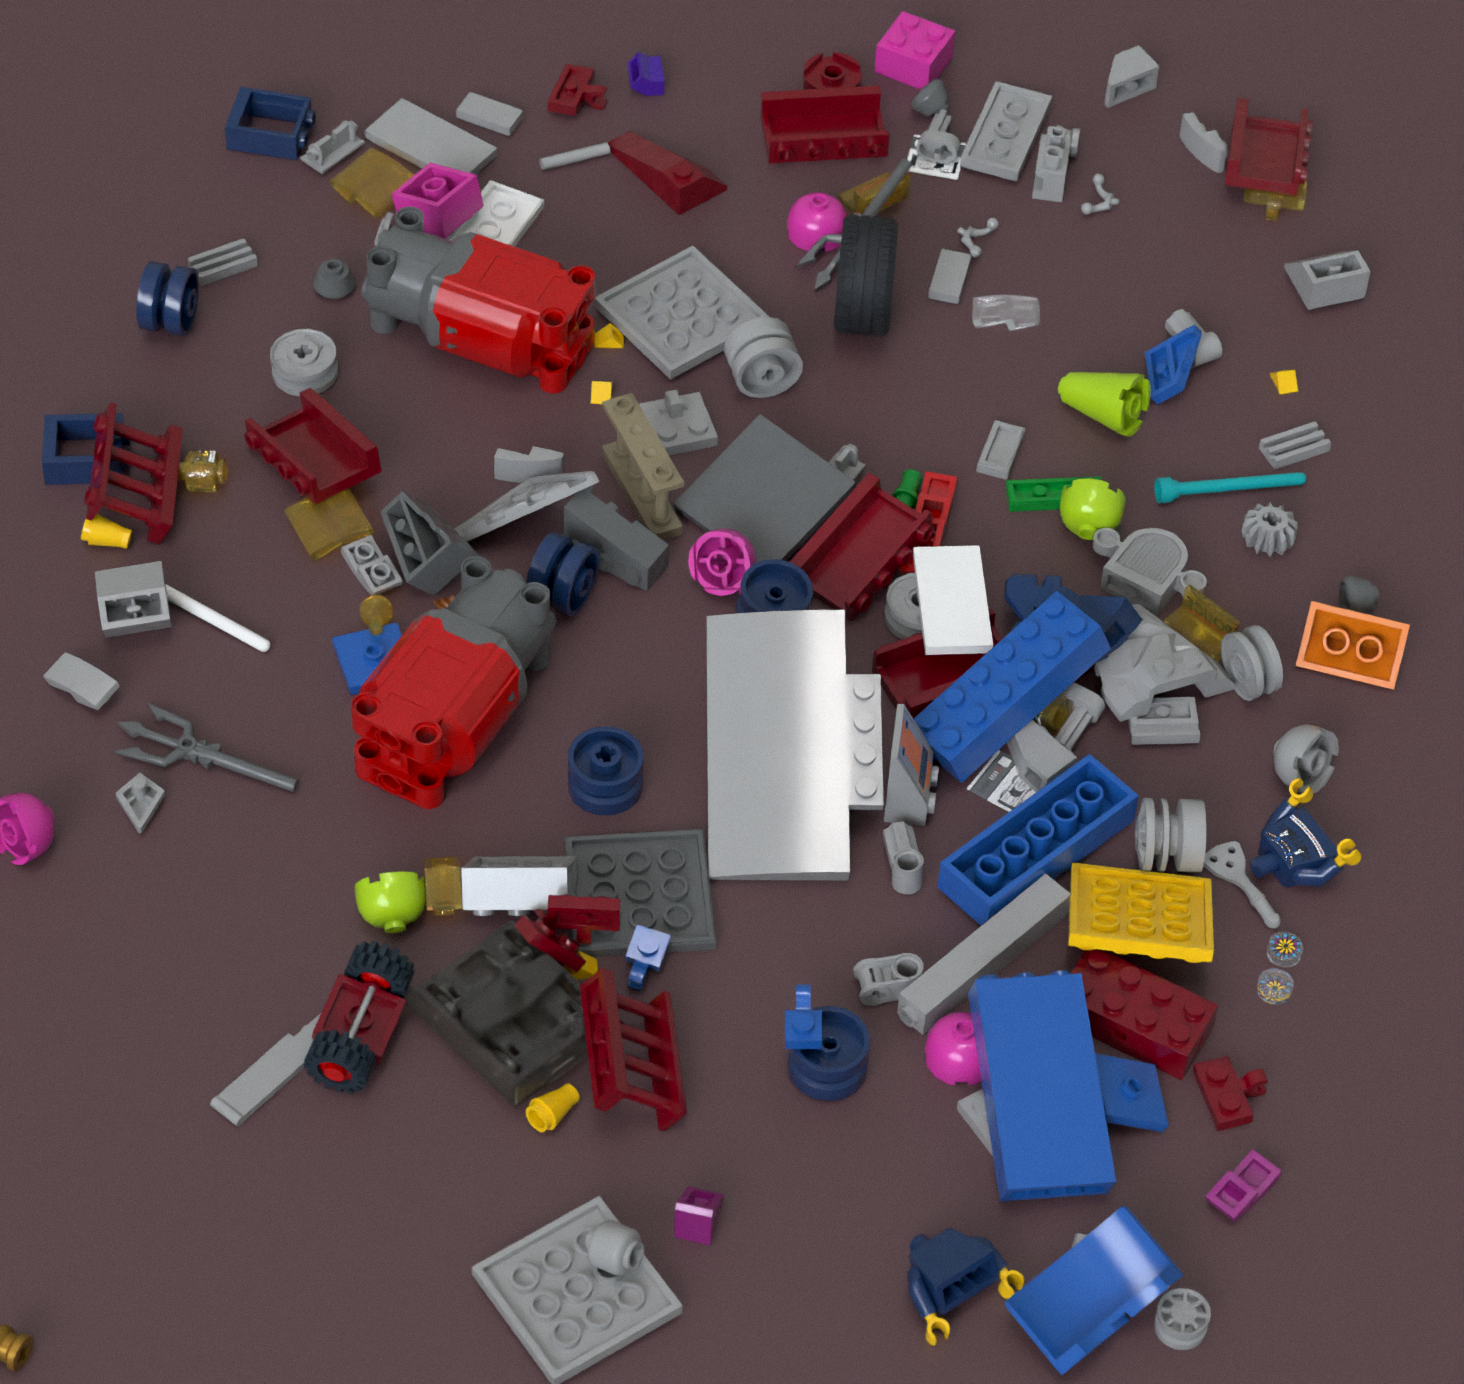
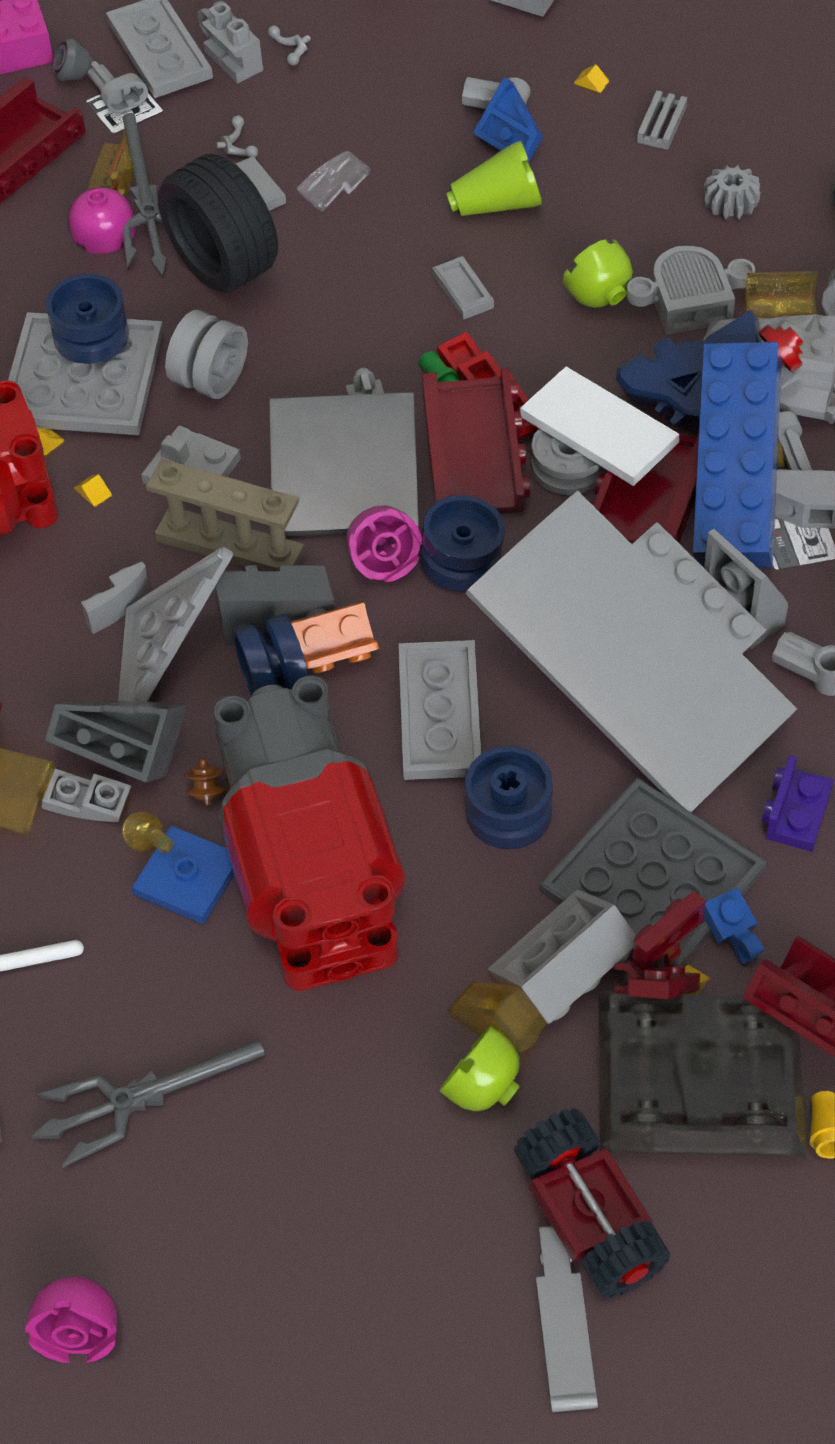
camera: 40 degrees left, 5 degrees up
(140, 800) = (141, 1190): light grey piece -> none
(626, 594) = (335, 636): none -> bracket
(638, 686) = (438, 709): none -> light grey plate
(712, 275) = (87, 318): none -> dark blue wheel
(779, 928) = (798, 806): none -> dark purple bracket
(1037, 493) = (539, 292): green tile -> none
(1124, 641) = (788, 344): none -> red plate
(1167, 489) = (624, 219): teal piece -> none

